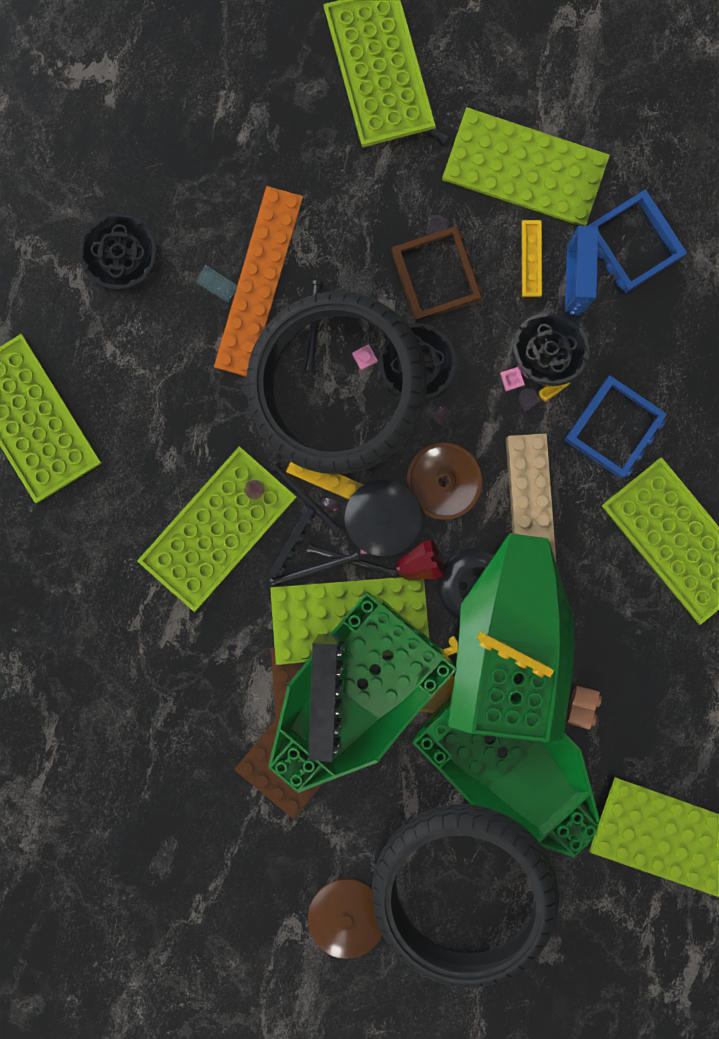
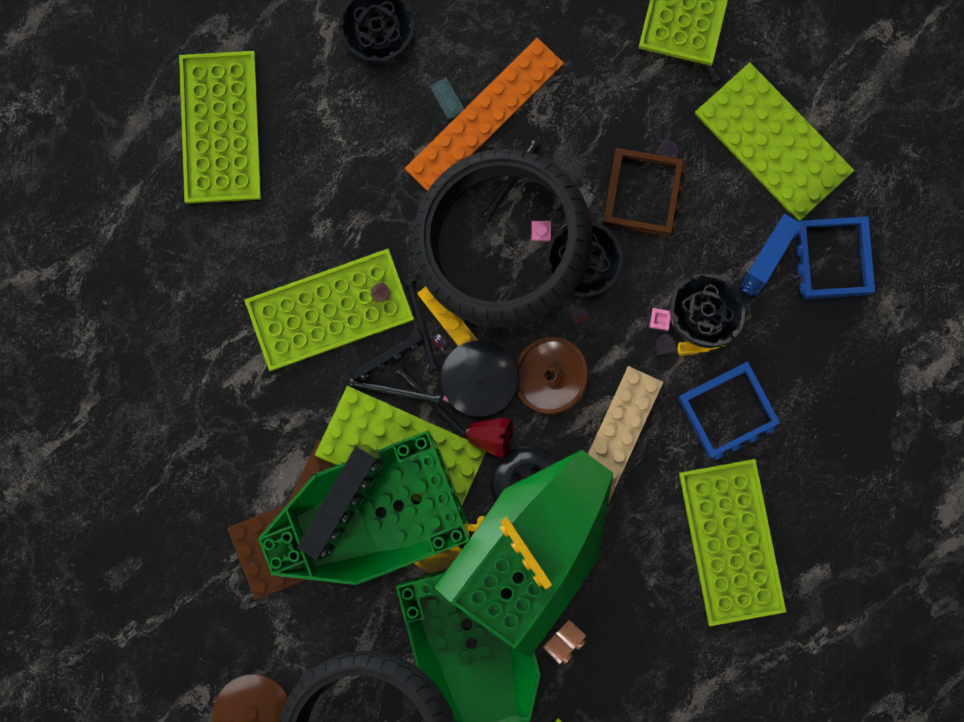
camera: 30 degrees right, 5 degrees down
(531, 258) = (735, 223): yellow plate -> none

